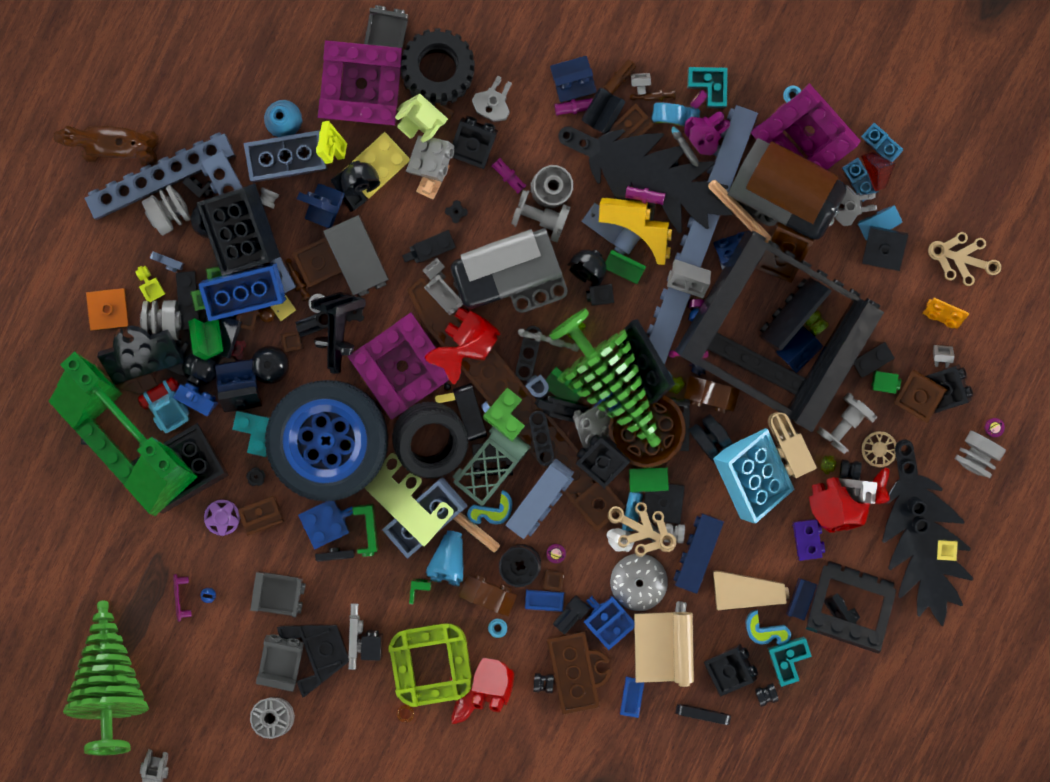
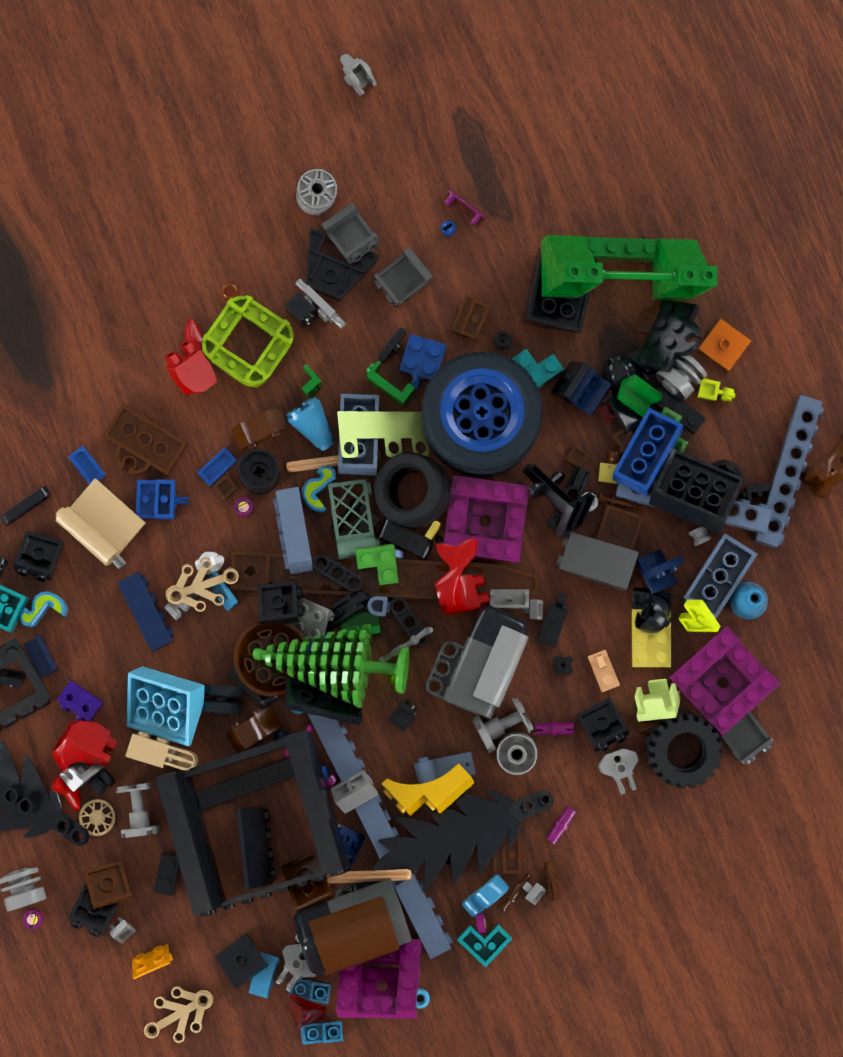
camera: 135 degrees right, 5 degrees down
(105, 684) = (452, 94): bright green plant -> none
(164, 211) = (759, 449): light grey wheel -> none
(166, 410) = (615, 322): medium azure piece -> none
(170, 263) = (715, 420): sand blue plate -> none
(190, 396) = (598, 347): blue plate -> none
(221, 517) = (495, 289): medium lavender wheel -> none
(270, 364) = (575, 425): black cylinder -> none
(430, 158) = (619, 682): light grey plate -> none
(497, 634) = (229, 408): medium azure plate -> none
(539, 682) = (161, 407): black wheel -> none
(573, 79) = (582, 843): dark blue bracket -> none
(574, 611) = (188, 480): black piece -> none
(588, 266) = (432, 726): black cylinder -> none
(603, 111) = (538, 843): black panel -> none
(624, 267) = (407, 752): green panel -> none
(639, 568) = (179, 552): light grey dish -> none
(645, 195) = (446, 816): magenta pin -> none
(648, 480) = (233, 624): green panel -> none
(667, 502) = (209, 623): black plate -> none
(679, 384) = (282, 711): clear neon green plate -> none
(685, 147) = (455, 880): dark grey piece -> none
(706, 132) = (451, 906): magenta hinge -> none
(744, 591) = (85, 620): tan slope -> none
(800, 349) = (224, 826): dark blue panel -> none
(819, 326) = (229, 855): clear neon green wheel -> none
(828, 464) = (121, 768): clear neon green plate -> none
(885, 382) = (141, 868): green brick -> none

